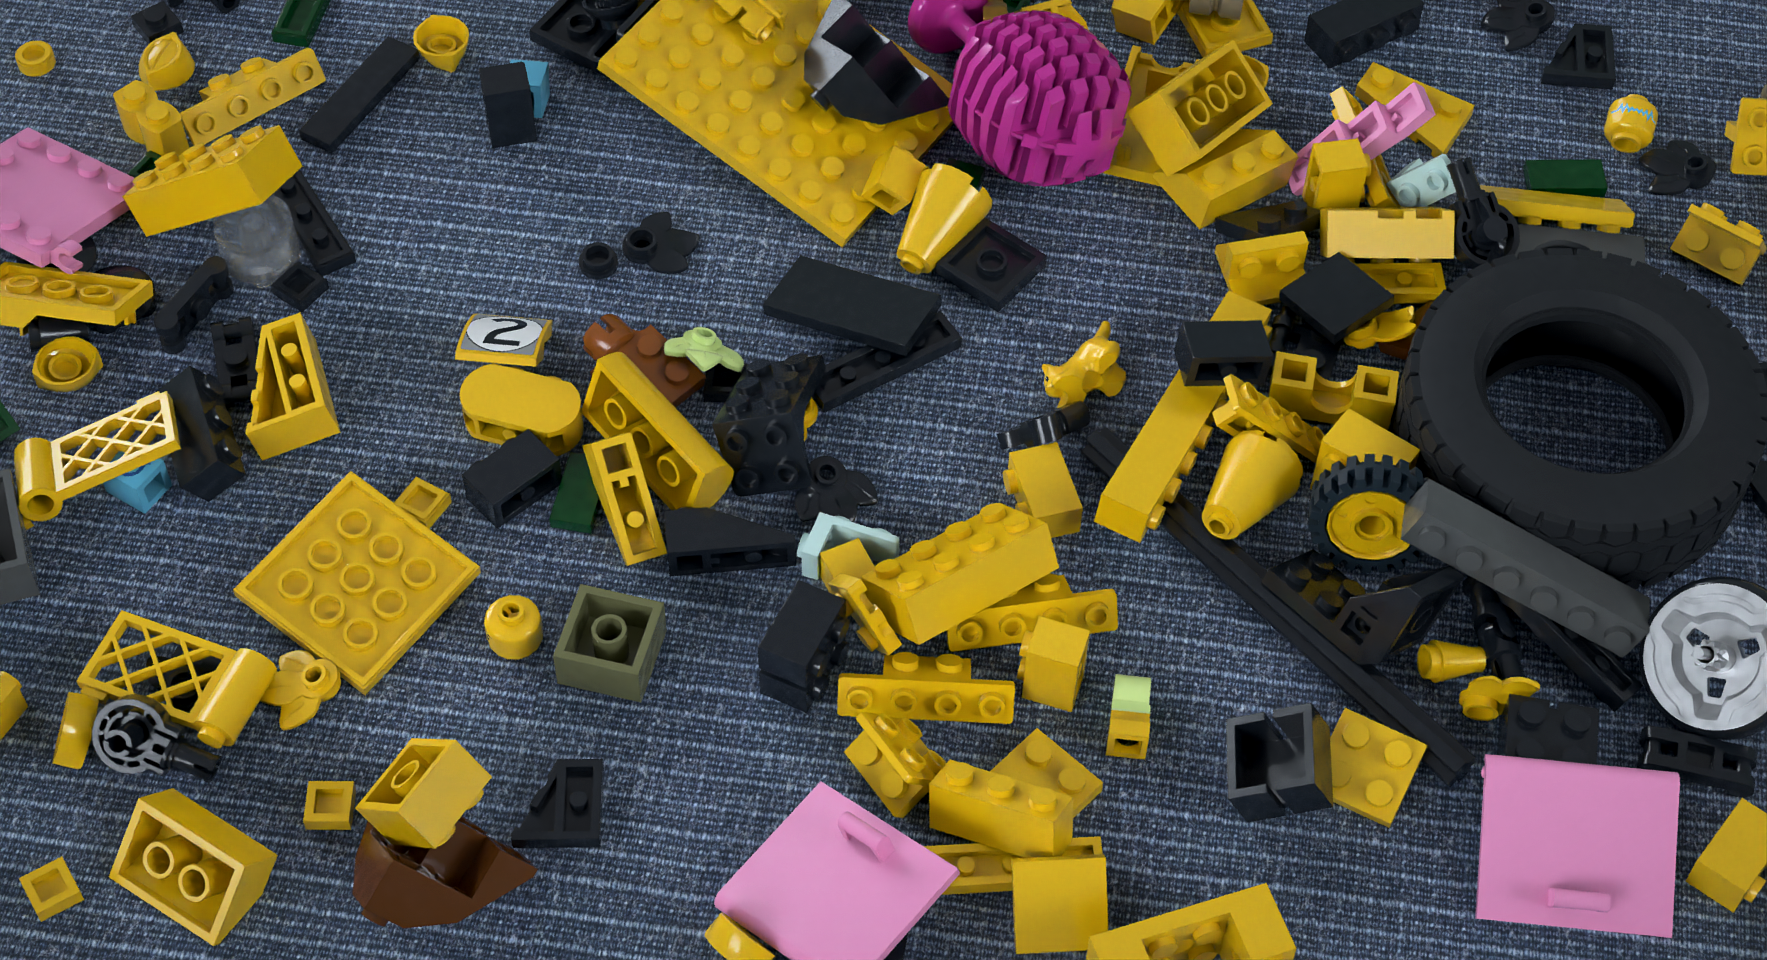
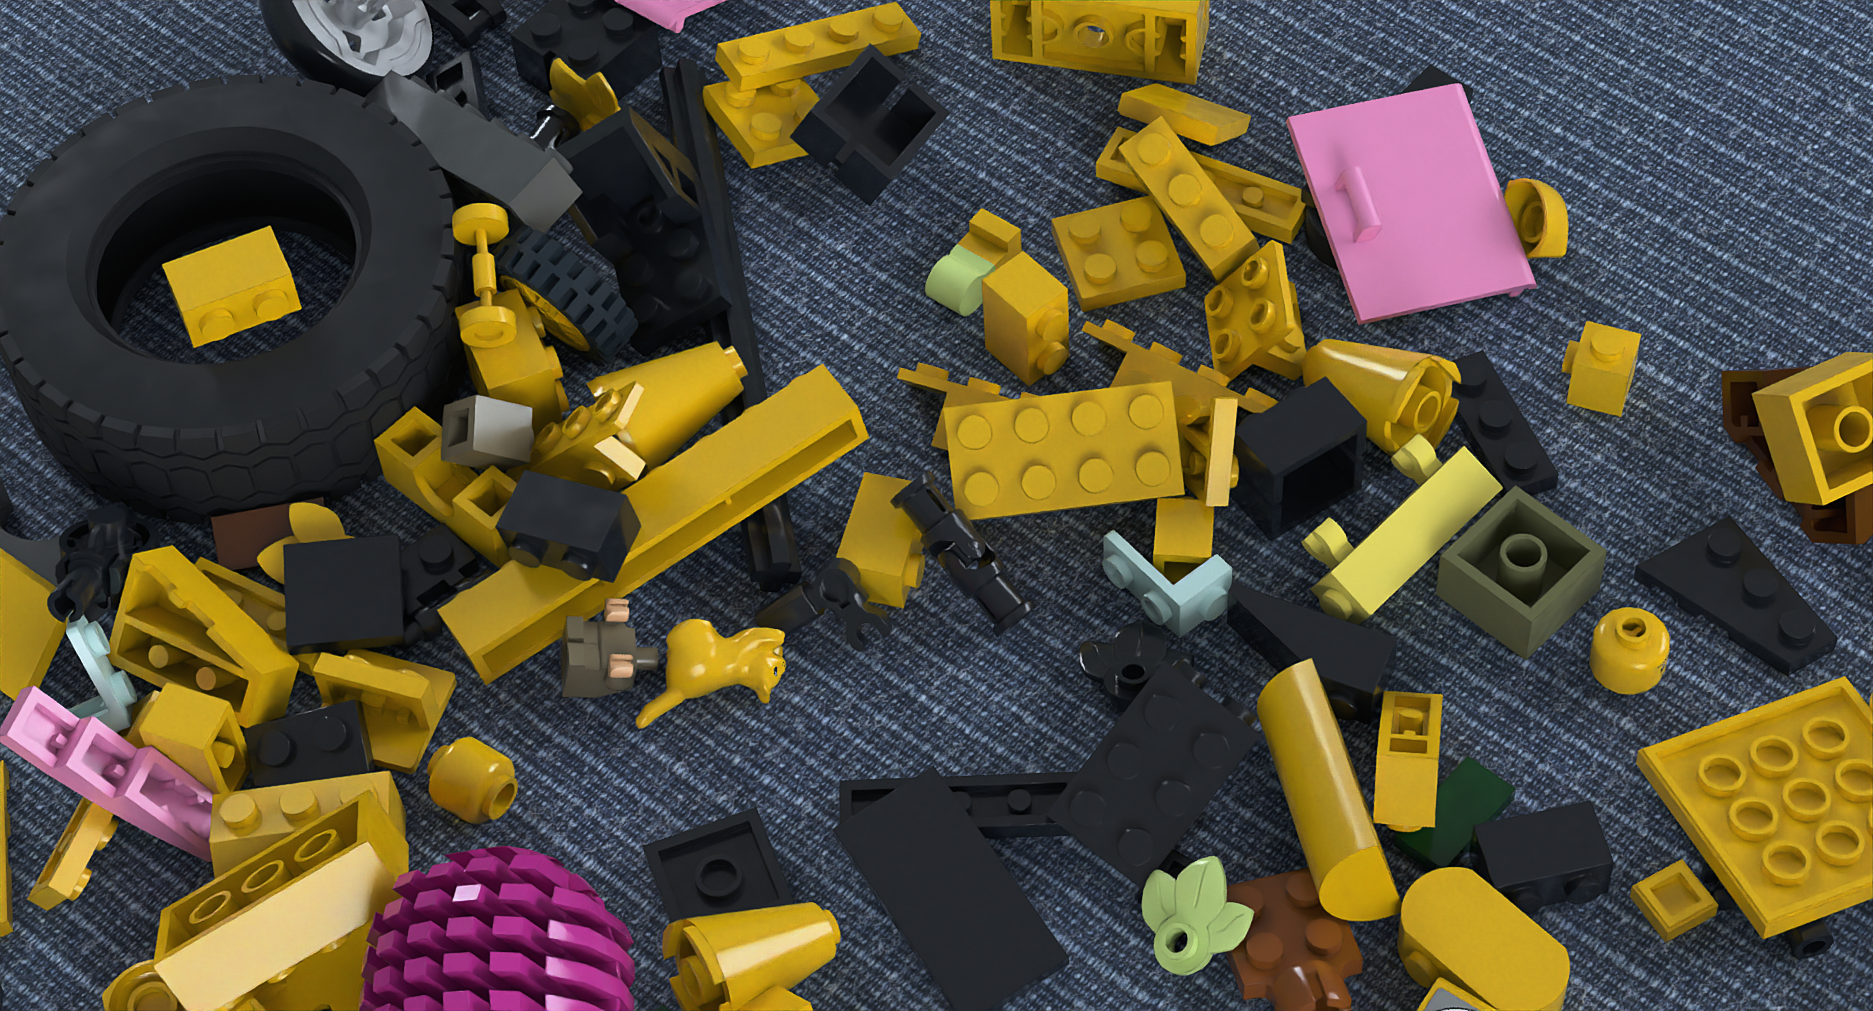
camera: 145 degrees left, 0 degrees up
(480, 722) = (1744, 593): none -> black wing
(566, 808) = (1657, 438): black wing -> none
(629, 835) = (1601, 367): none -> yellow brick
(689, 773) = (1499, 429): none -> black plate
(702, 638) = (1406, 538): none -> light yellow brick
(779, 735) = (1390, 387): none -> yellow cone
(980, 482) = (957, 545): none -> black piece
(1153, 345) = (602, 654): none -> dark tan piece
(1173, 248) = (472, 780): none -> yellow head
(1327, 394) = (486, 433): none -> dark tan brick
(1378, 424) = (481, 226): none -> yellow wheel
(1378, 834) = (815, 46): none -> yellow plate
(1539, 332) = (232, 286): none -> yellow brick

